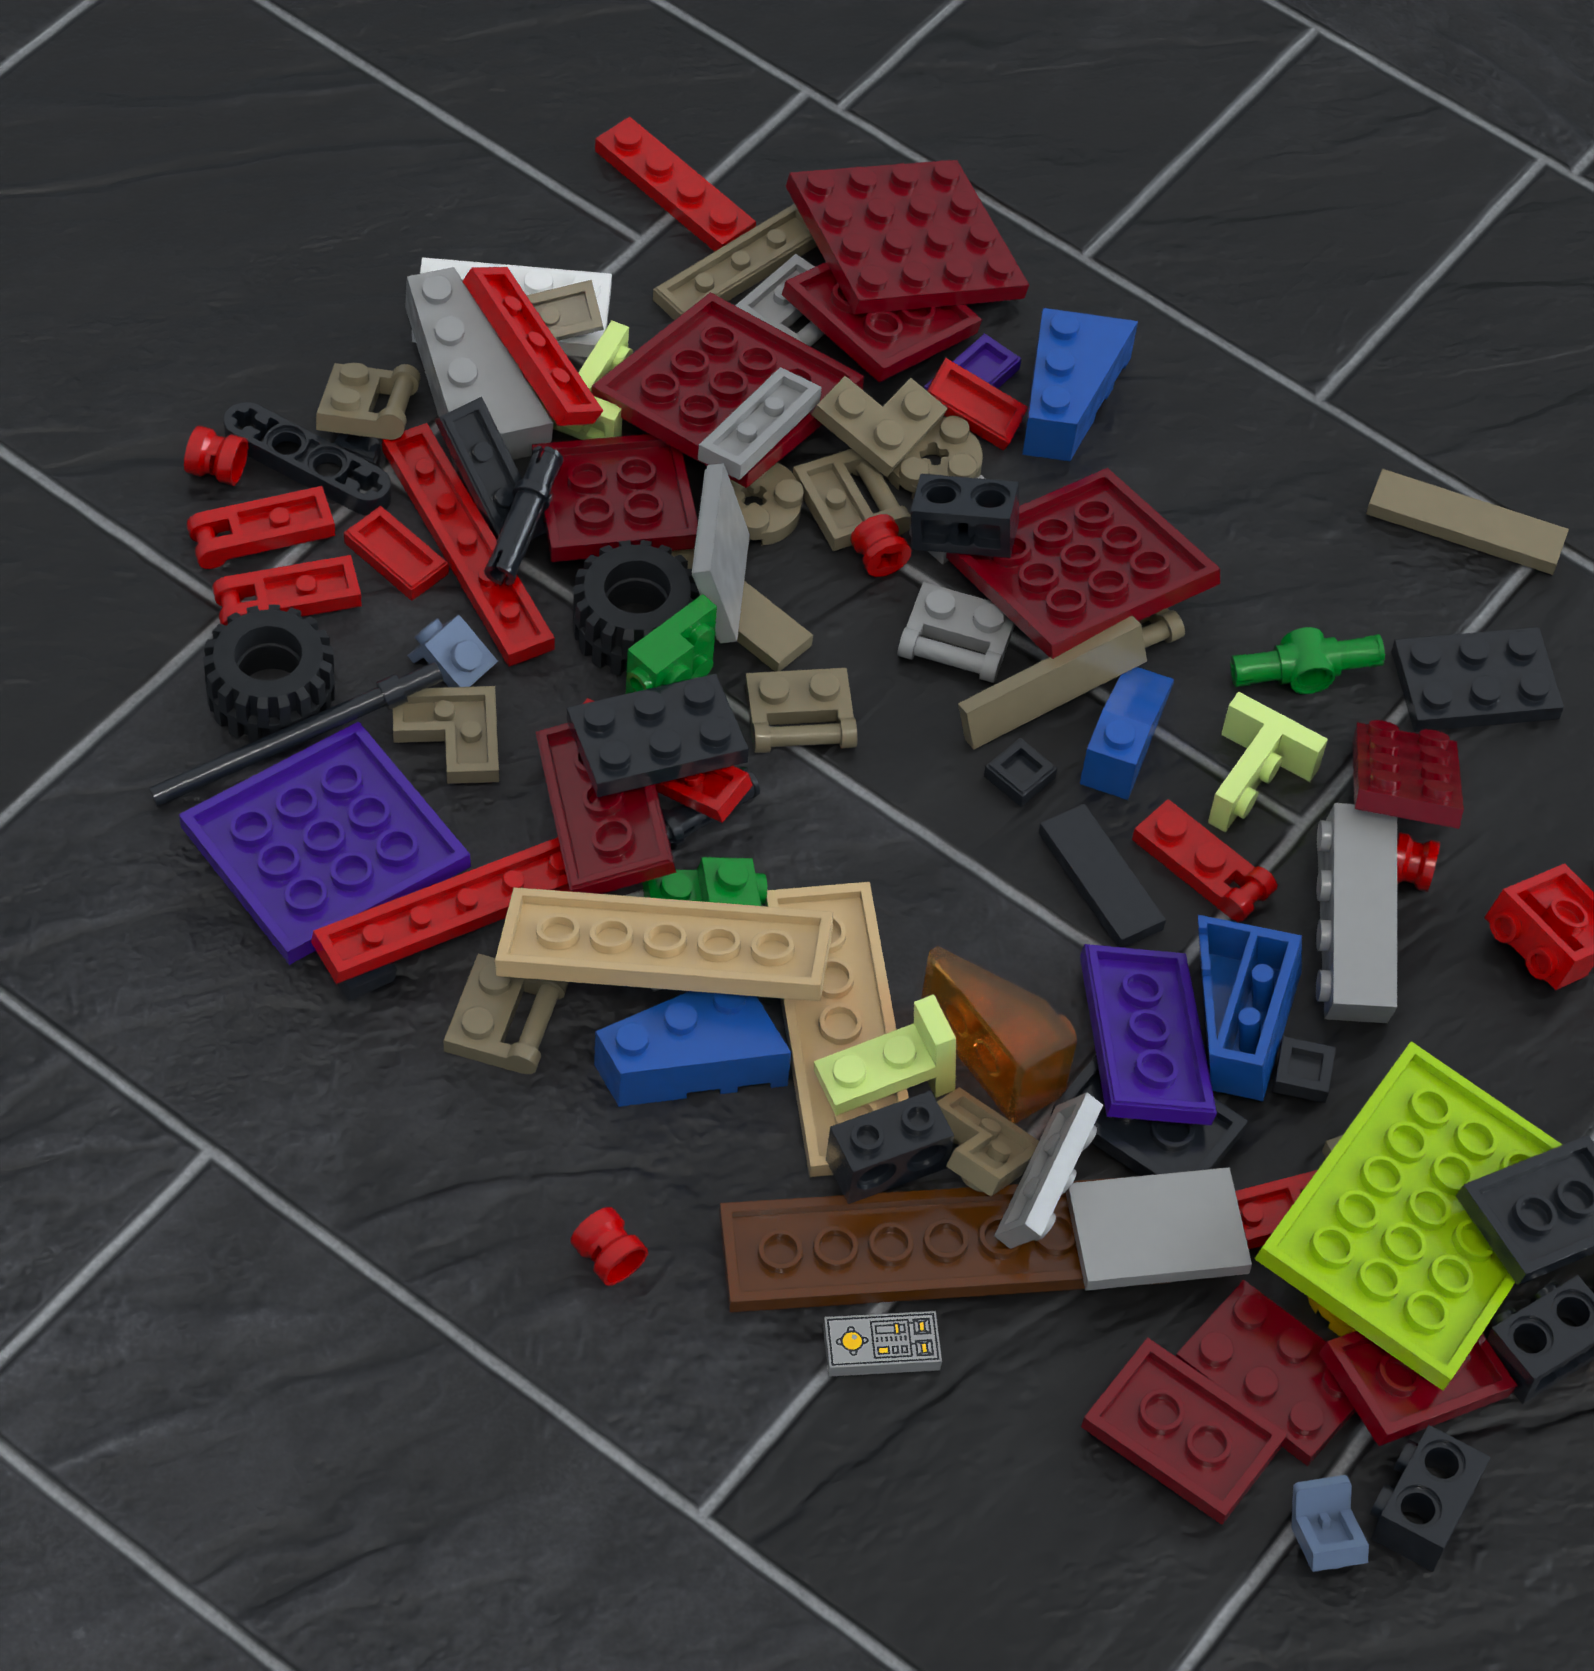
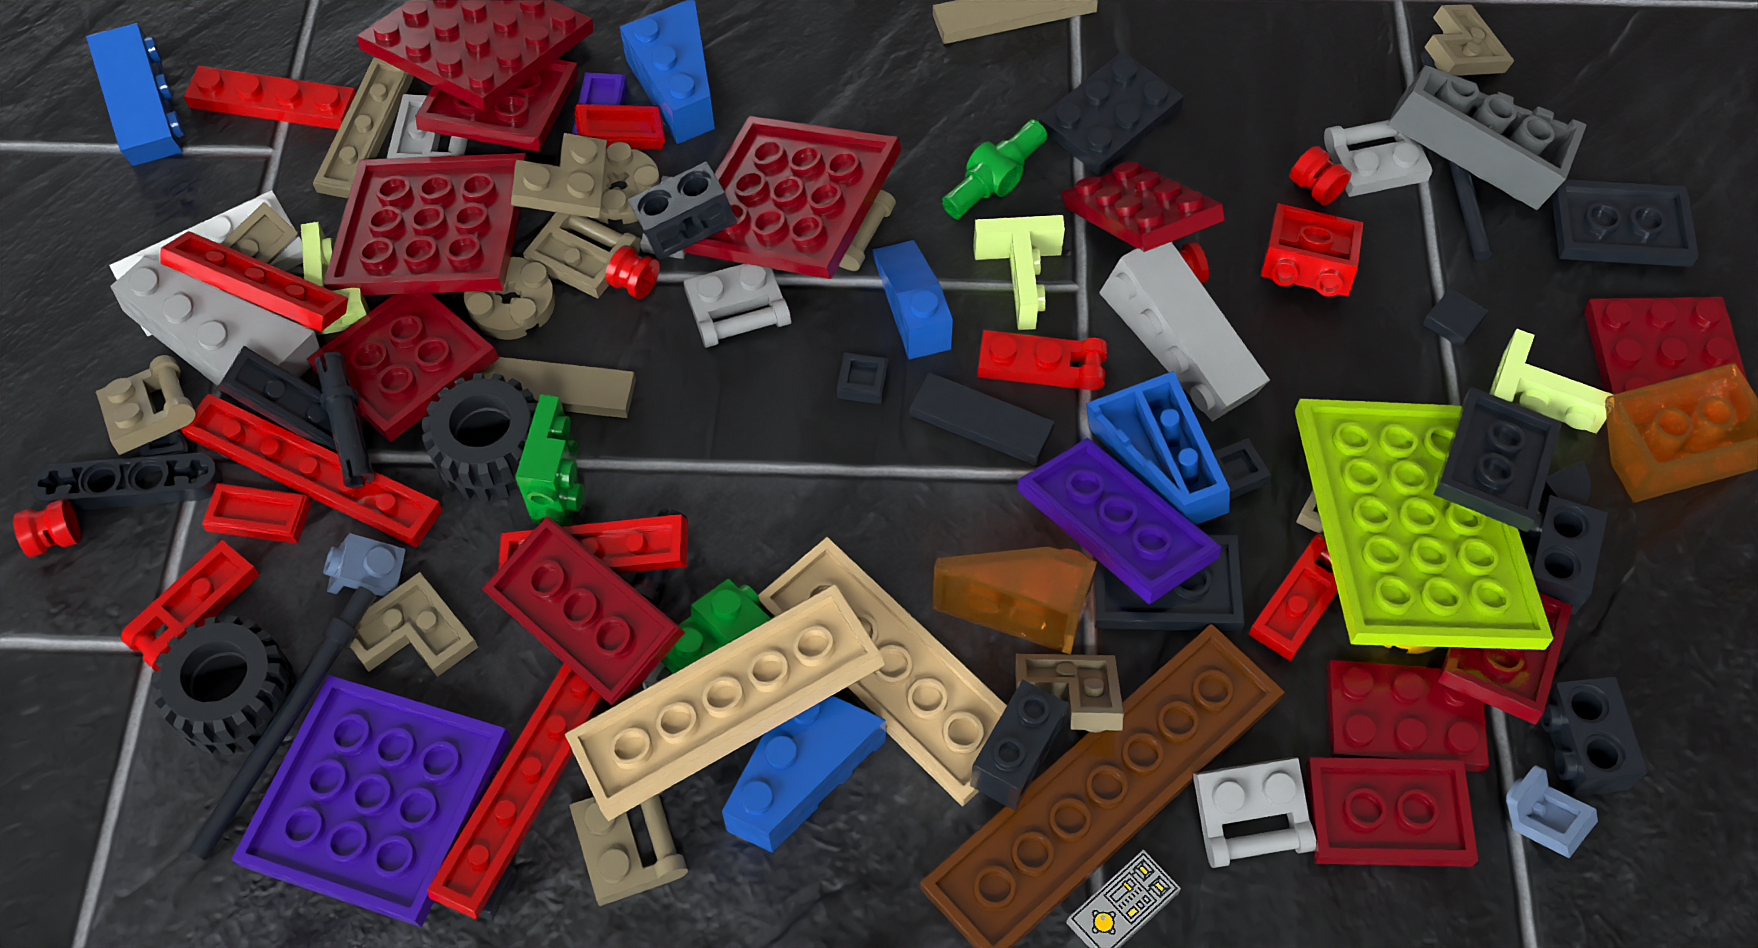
camera: 30 degrees left, 5 degrees up
(260, 526) = (127, 563): red plate -> none
(553, 112) = (136, 93): none -> blue wedge
(657, 735) = (587, 531): black plate -> none
(721, 551) = (523, 349): light grey tile -> none
(760, 422) = (479, 235): light grey plate -> none
(797, 699) = (660, 427): dark tan plate -> none
(892, 1061) = (961, 672): yellowish green bracket -> none
(1049, 1171) = (1145, 679): light grey plate -> none
(1052, 682) = (838, 297): dark tan tile -> none
(1067, 1329) = (1249, 794): none -> light grey plate
(1158, 1228) = (1250, 666): light grey tile -> none

